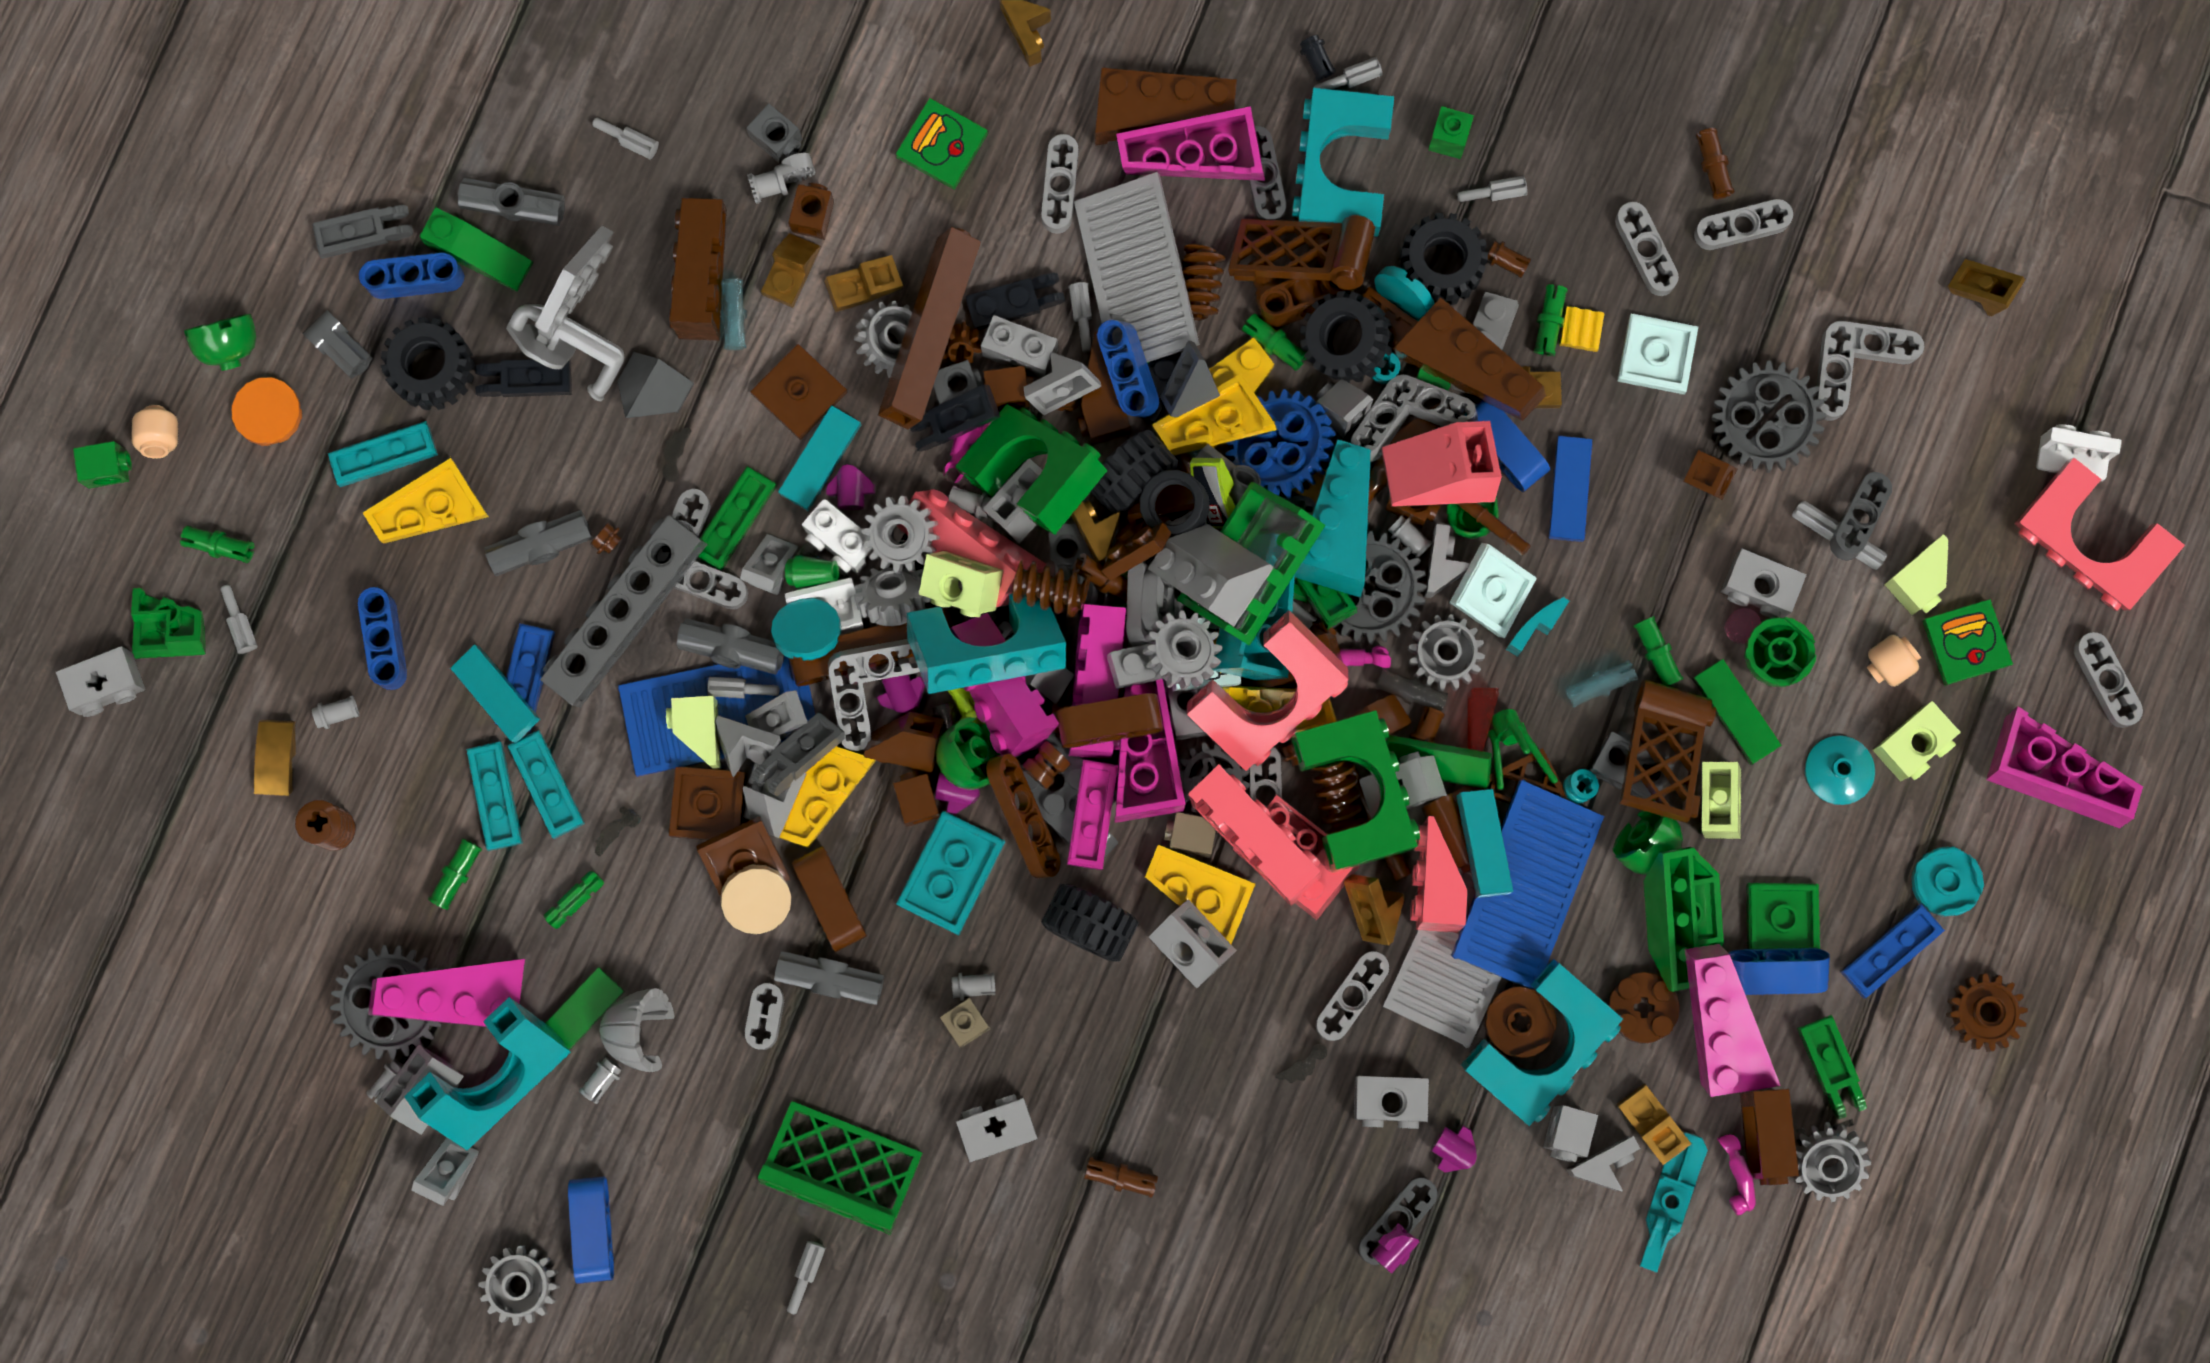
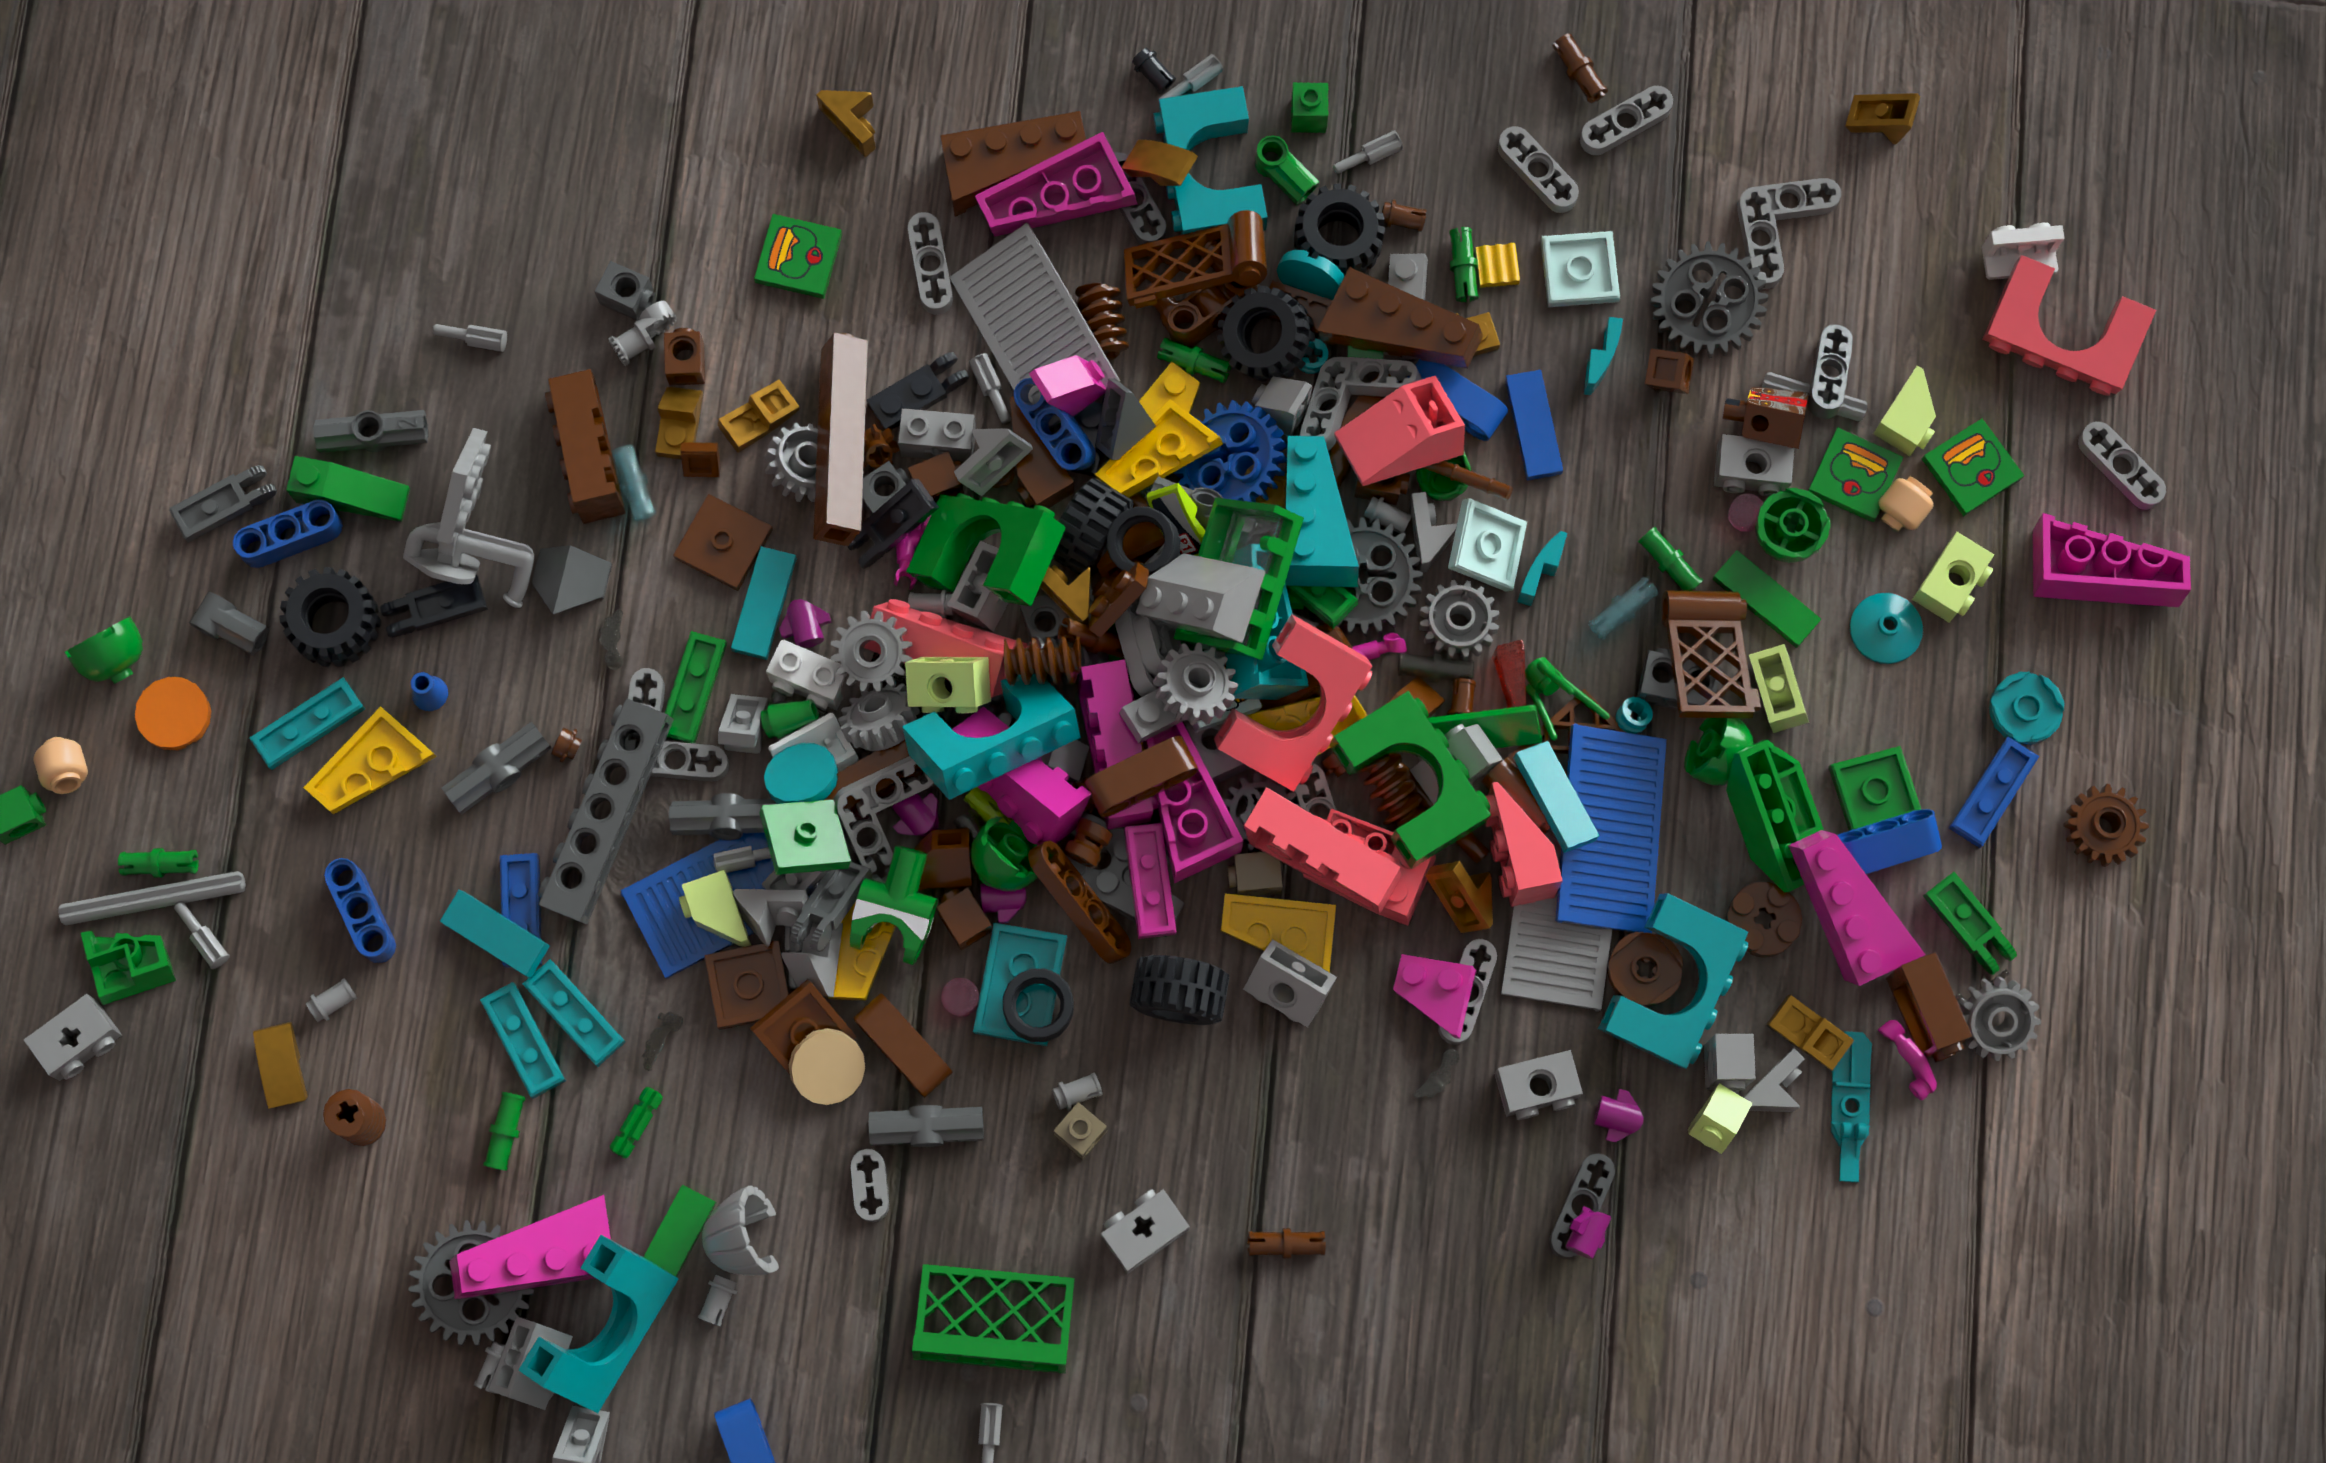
camera: 20 degrees left, 5 degrees down
(203, 574) = (151, 898): none -> light grey axle
(502, 460) = (433, 696): none -> blue cone
(791, 688) = (804, 837): none -> plate
(799, 310) = (700, 459): none -> reddish brown tile
(857, 771) = (896, 903): none -> green connector
(893, 869) = (960, 997): none -> clear pink tile
(948, 874) = (1028, 978): none -> black tyre
(1150, 336) = (1070, 383): none -> slope
(1296, 148) = (1160, 161): none -> pearl gold slope
(1324, 987) = (1436, 989): none -> dark pink wing
(1411, 188) = (1285, 172): none -> green piece
(1544, 1182) = (1719, 1118): none -> yellowish green slope
(1648, 446) = (1600, 360): none -> teal slope
(1791, 543) = (1770, 415): none -> reddish brown torso
(1855, 618) = (1855, 474): none -> green tile

